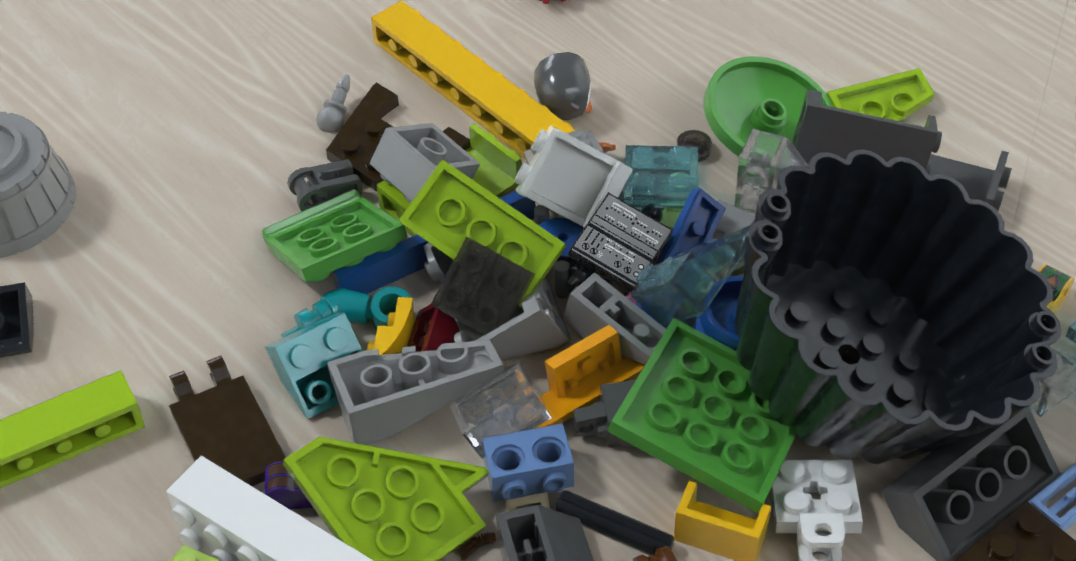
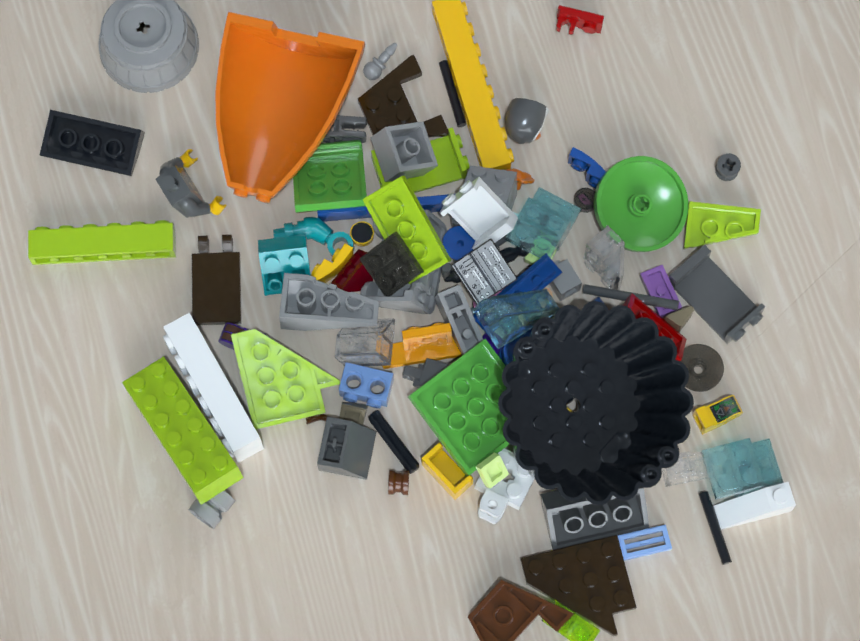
camera: 25 degrees right, 25 degrees up
(122, 331) = (182, 191): none -> dark grey torso
(216, 163) = (277, 100): none -> orange panel
(419, 287) = (362, 233): none -> black tile
(447, 102) = (452, 93): none -> black bar
(675, 106) = (583, 162): none -> blue slope
(793, 481) = (492, 470): none -> yellowish green plate
(842, 131) = (669, 268): dark grey panel -> none
(845, 50) = (727, 173): none -> dark grey wheel

